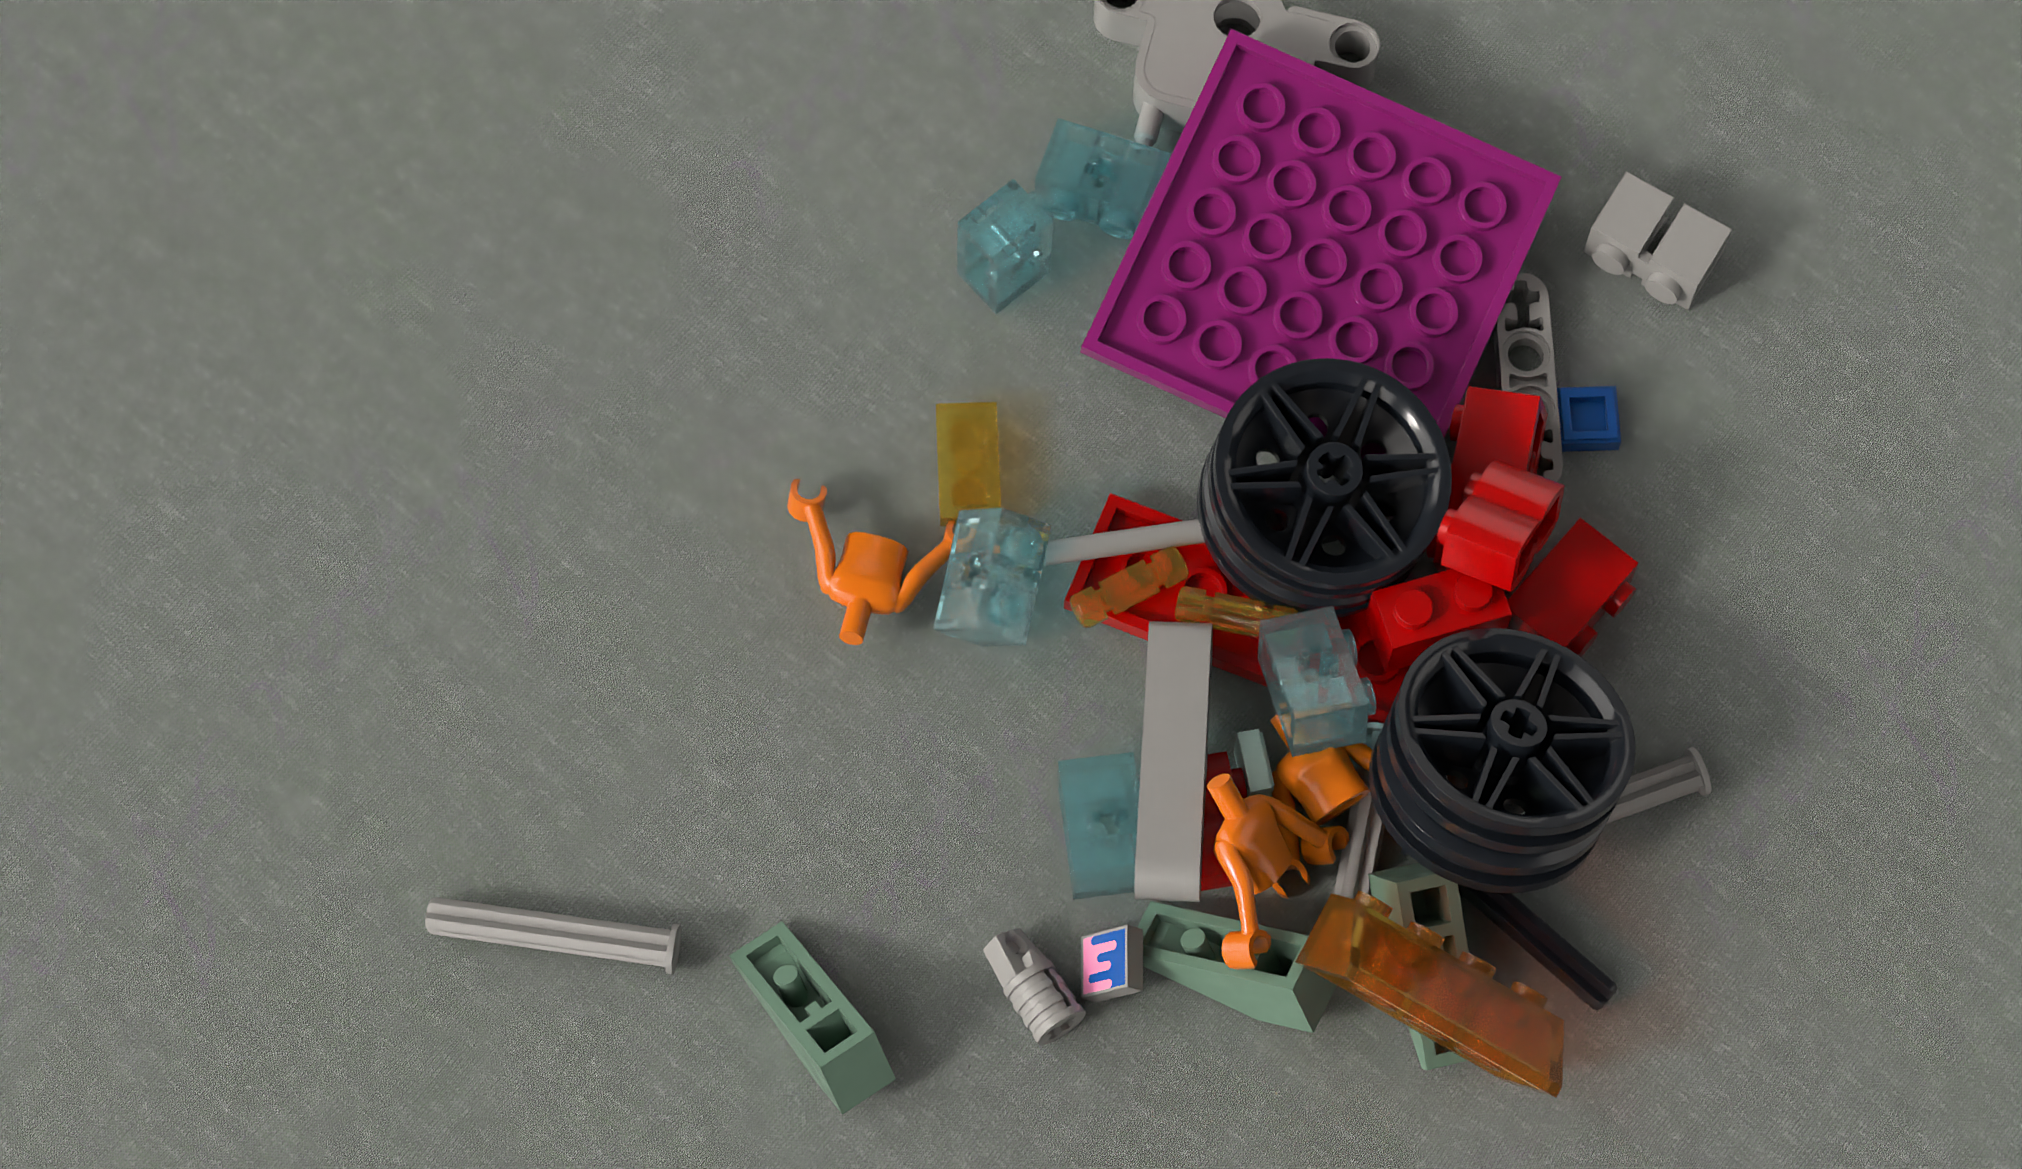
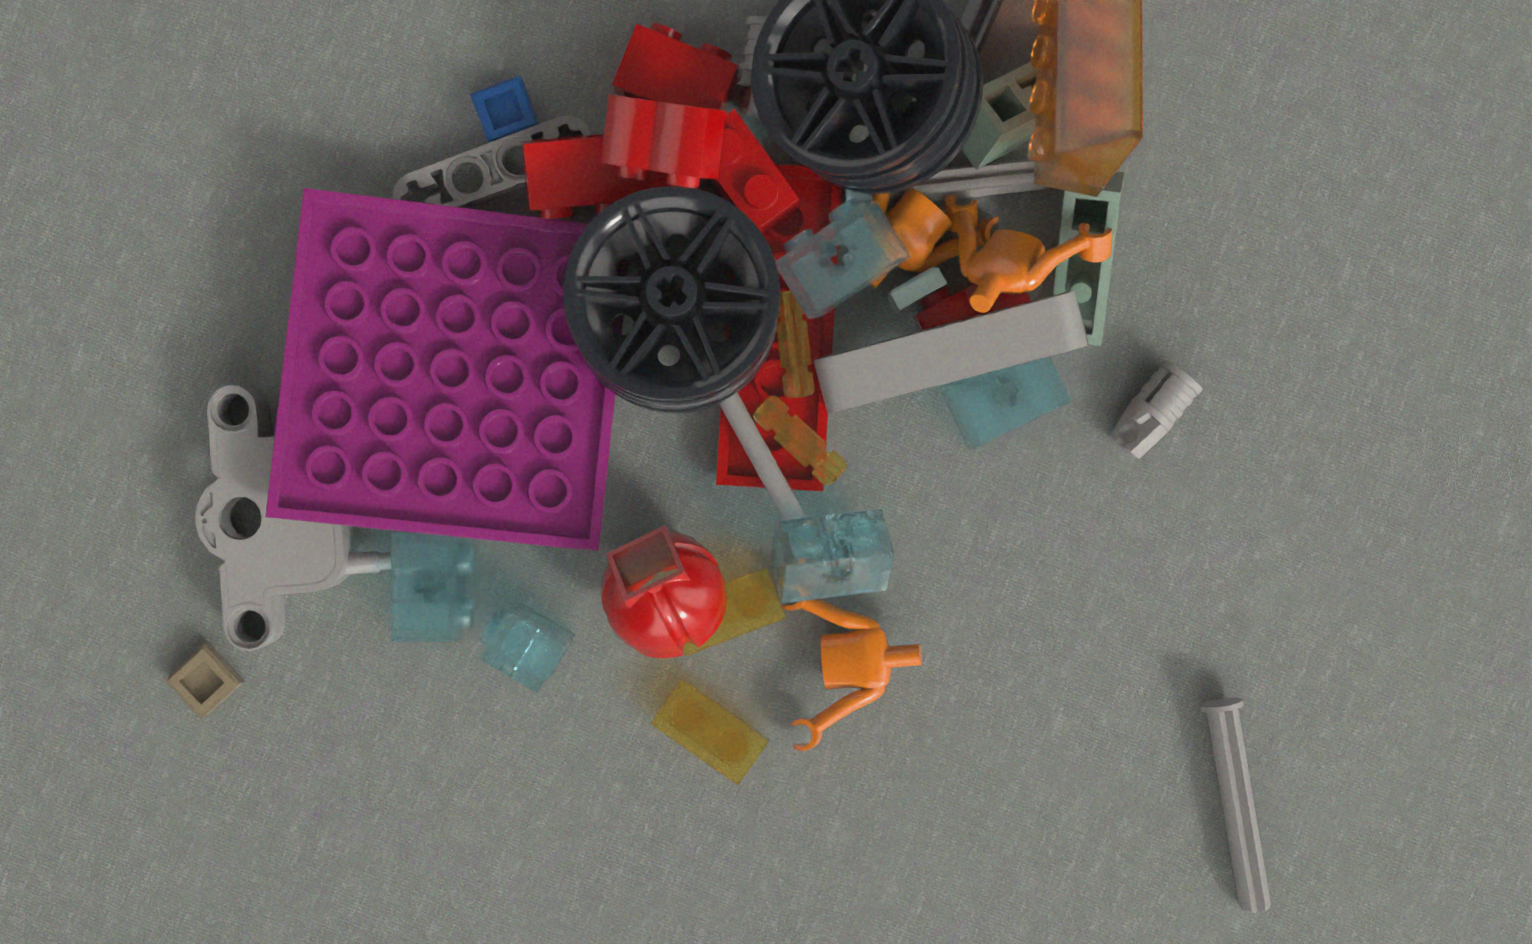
camera: 100 degrees left, 20 degrees up
(814, 1017) = (1242, 575): sand green slope -> none
(844, 406) = (710, 731): none -> clear yellow plate
(1015, 392) = (671, 610): none -> red piece
(1112, 963) = (1117, 351): tile -> none
(1630, 225) = (329, 69): light grey piece -> none

